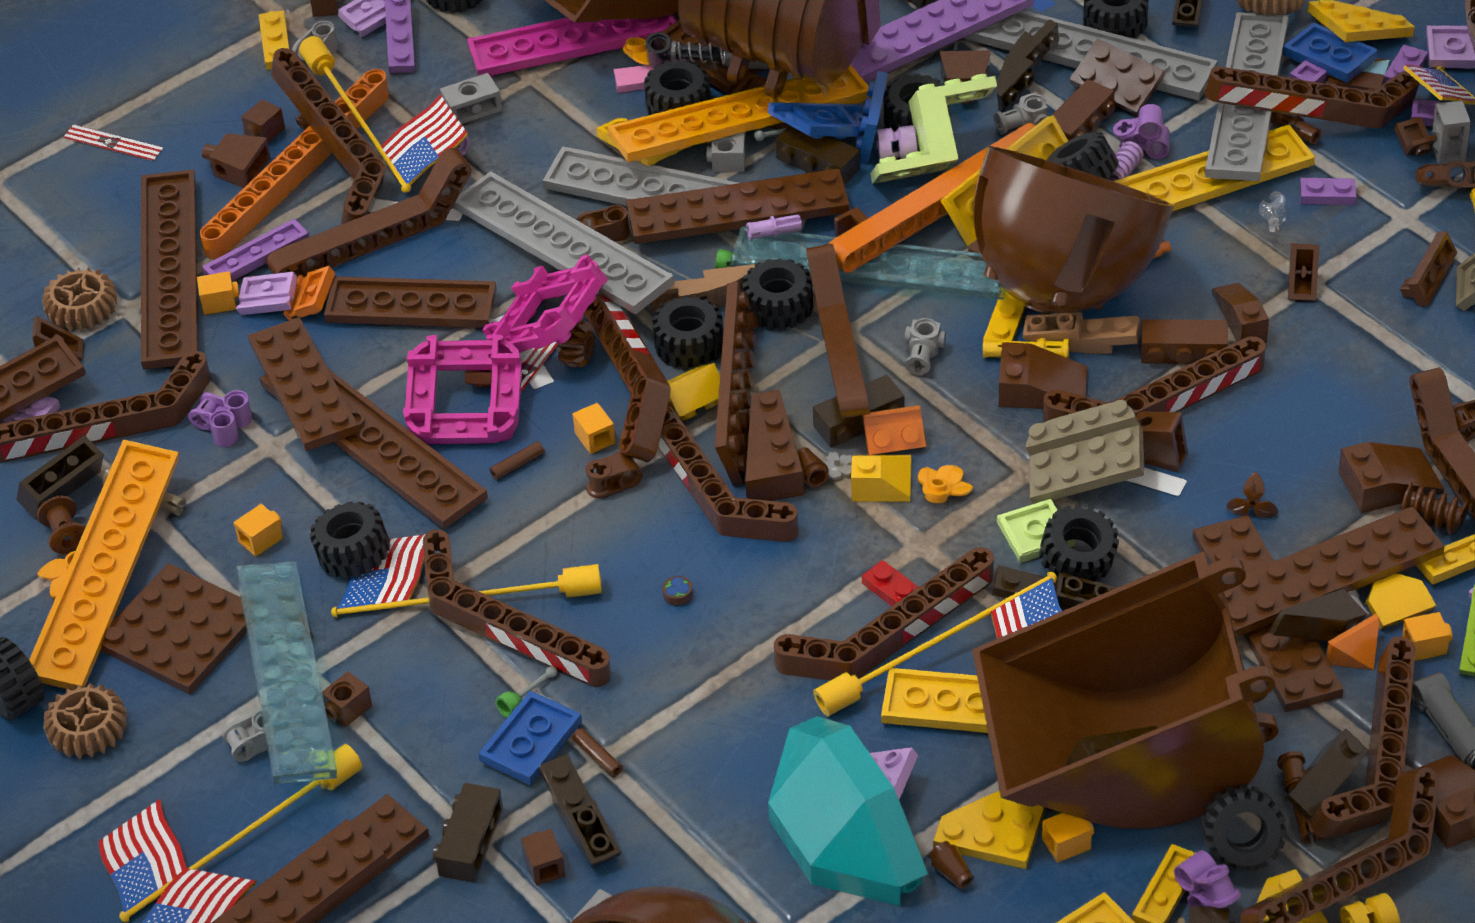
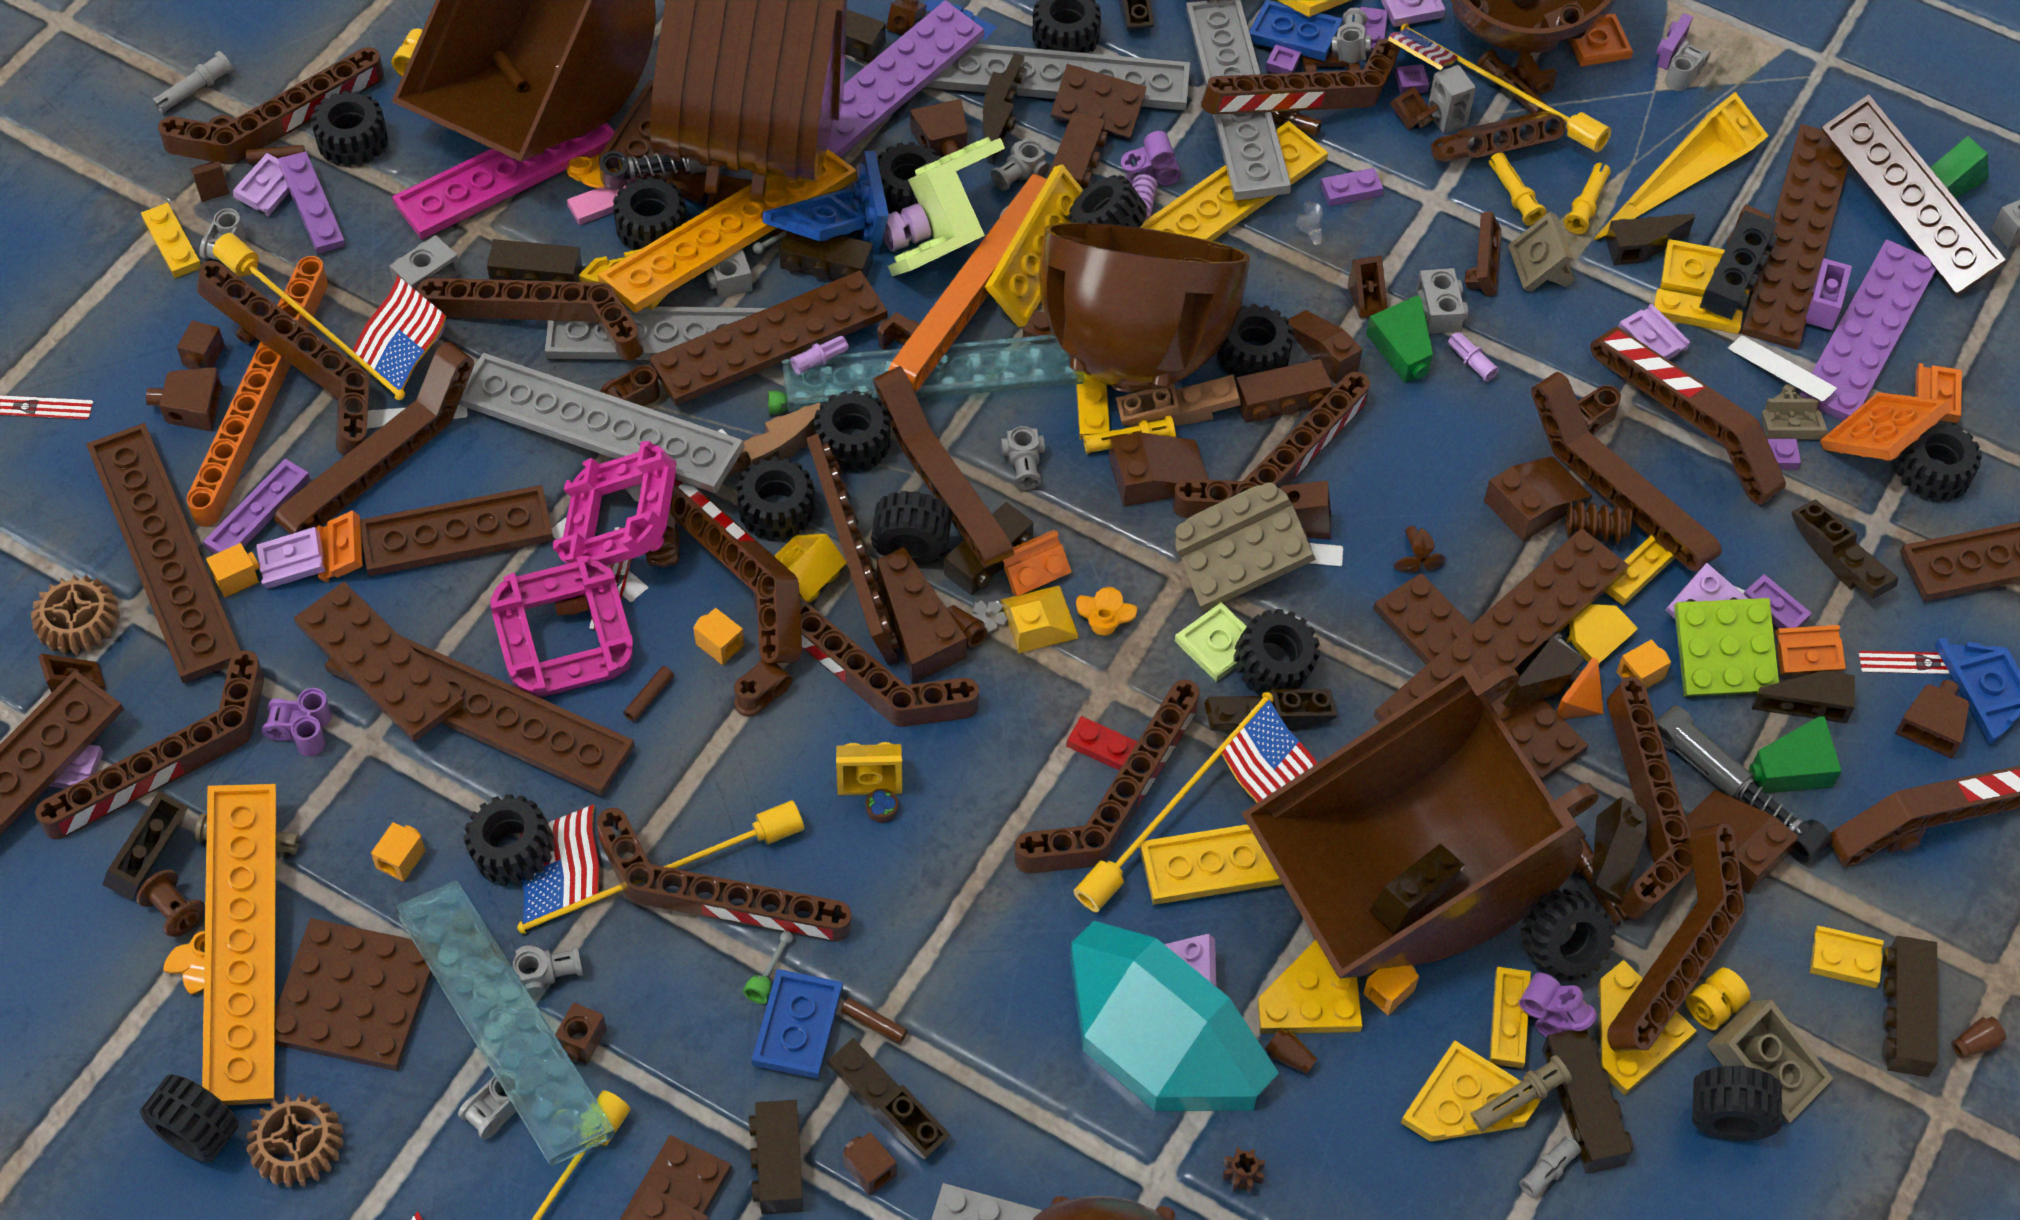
camera: 25 degrees left, 10 degrees up
(334, 644) = (548, 967): none -> light grey connector
(548, 139) = (537, 302): none -> reddish brown beam
(562, 114) = (533, 261): none -> dark brown brick
(675, 555) = (868, 768): none -> yellow slope
(796, 371) = (912, 522): none -> black tyre
(1174, 292) = (1261, 326): none -> black tyre
(1317, 321) = (1403, 338): none -> green slope
(1368, 298) = (1442, 300): none -> light grey brick
(1379, 66) = (1352, 38): none -> light grey connector
(1380, 351) = (1473, 356): none -> lavender axle

